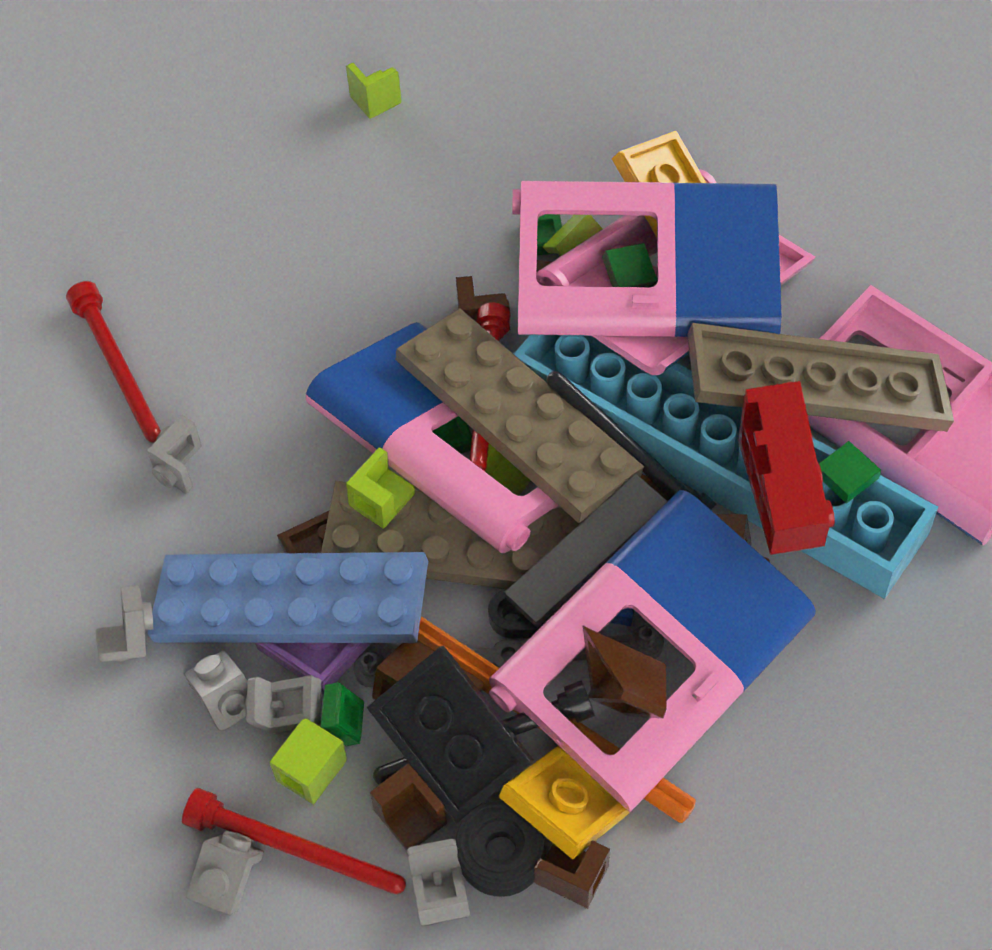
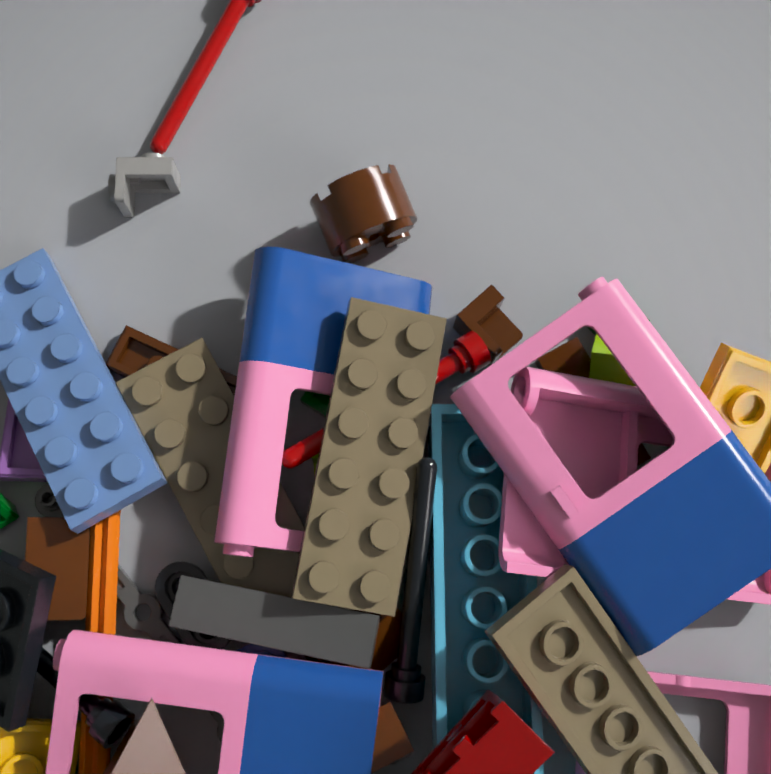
camera: 45 degrees right, 20 degrees up
(334, 320) = (364, 212): none -> reddish brown brick
(376, 91) = (661, 52): lime panel -> none
(378, 490) = (202, 389): lime panel -> none
(629, 267) = (609, 448): green tile -> none

